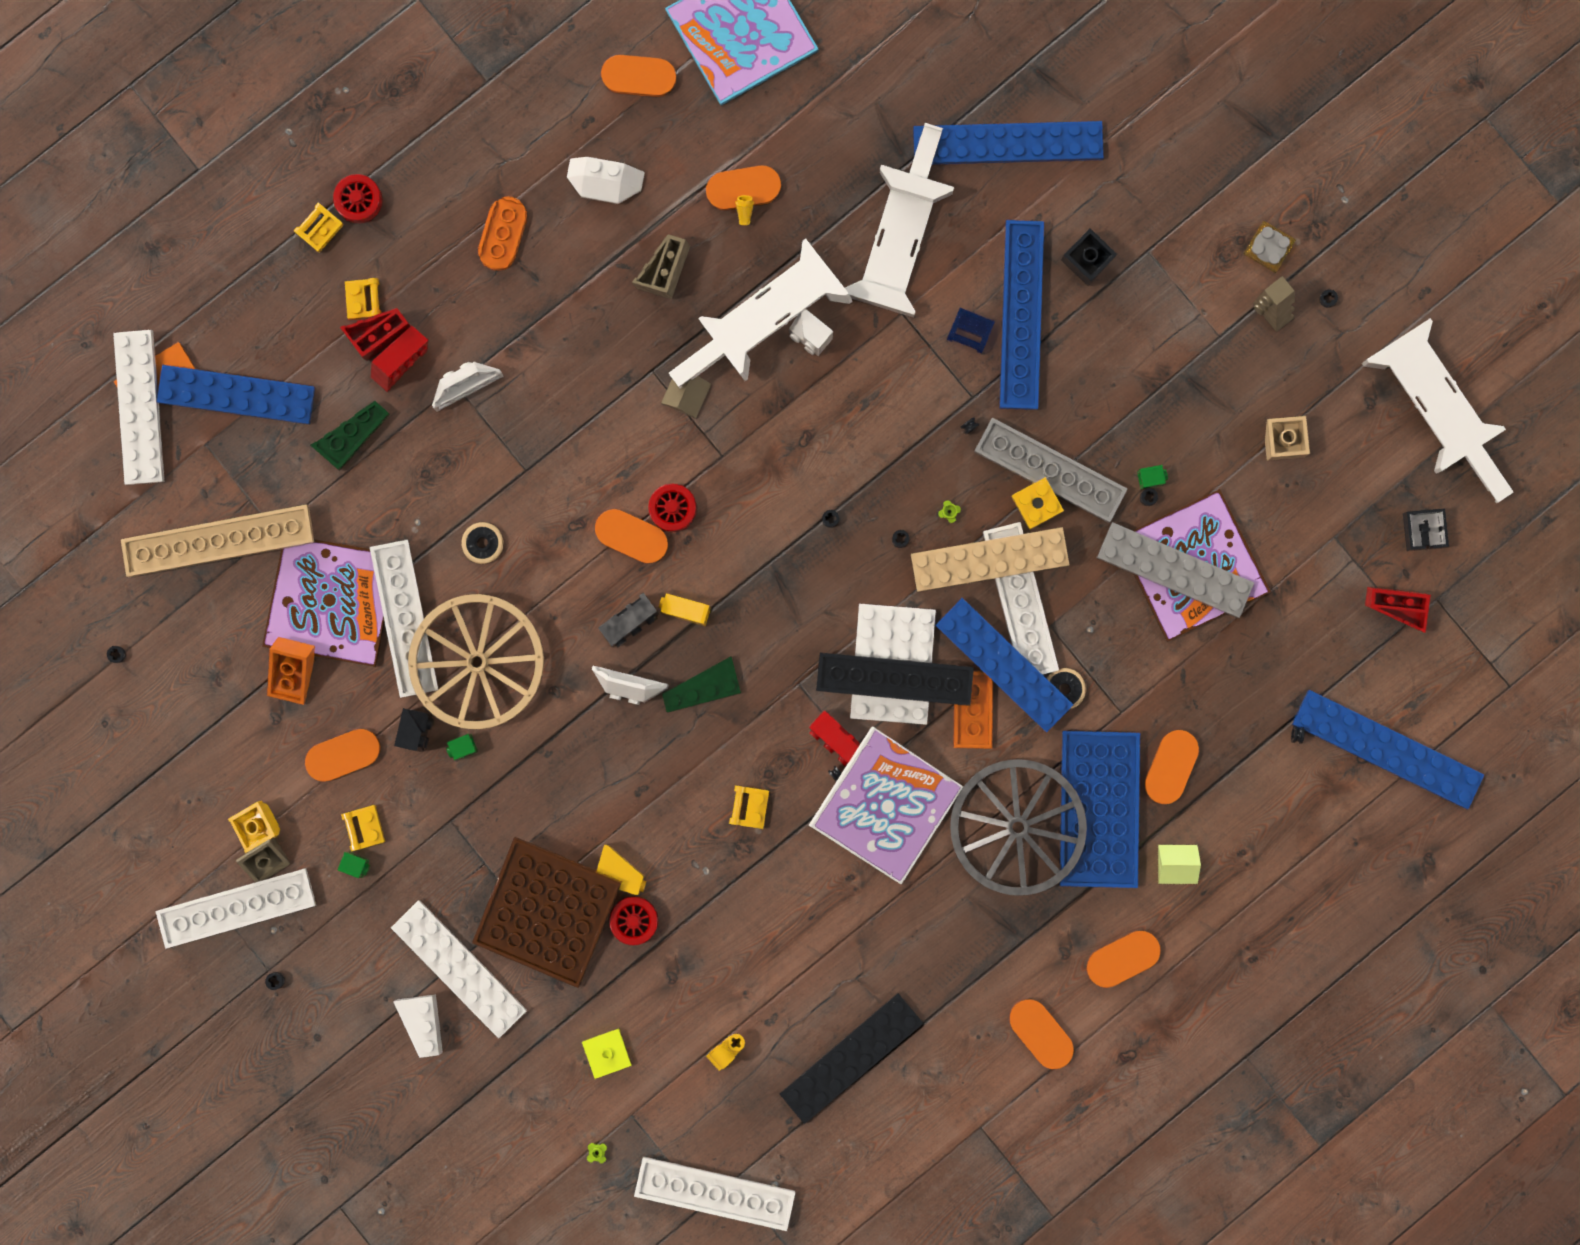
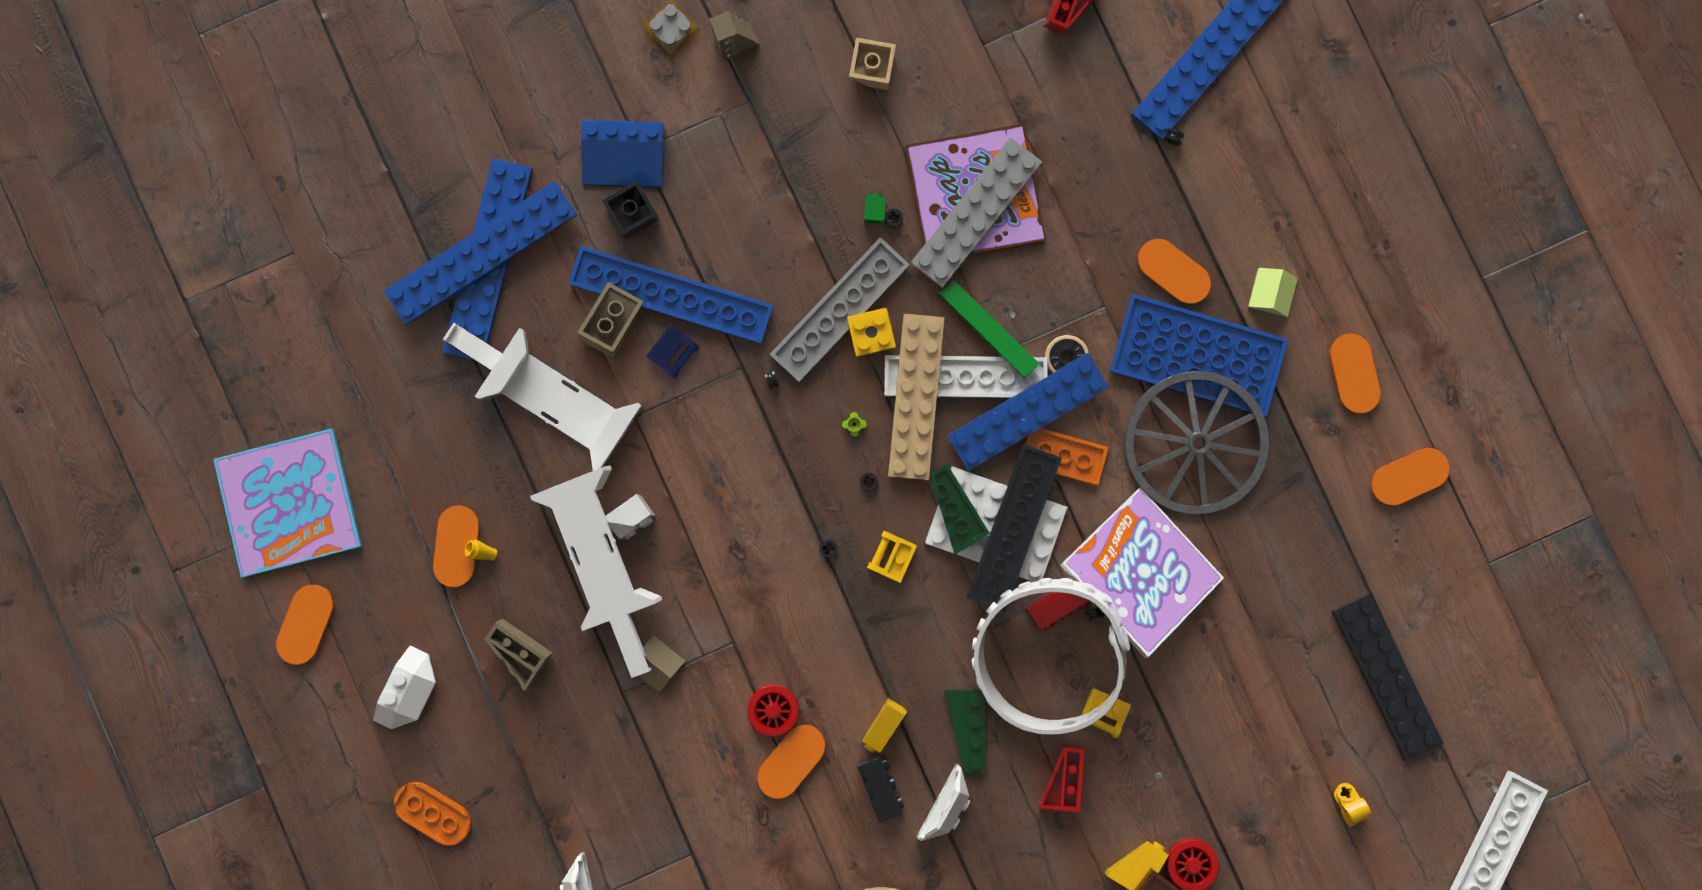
camera: 80 degrees left, 0 degrees up
(679, 786) = (1066, 782): none -> red wedge
(818, 794) = (1117, 637): none -> white piece
(837, 583) = (898, 560): none -> yellow plate
(895, 624) = (958, 513): none -> dark green wing
(983, 266) = (610, 320): none -> dark tan slope
(1012, 134) = (480, 253): none -> blue plate
(1070, 610) = (989, 329): none -> green tile
(1139, 235) = (622, 153): none -> blue slope

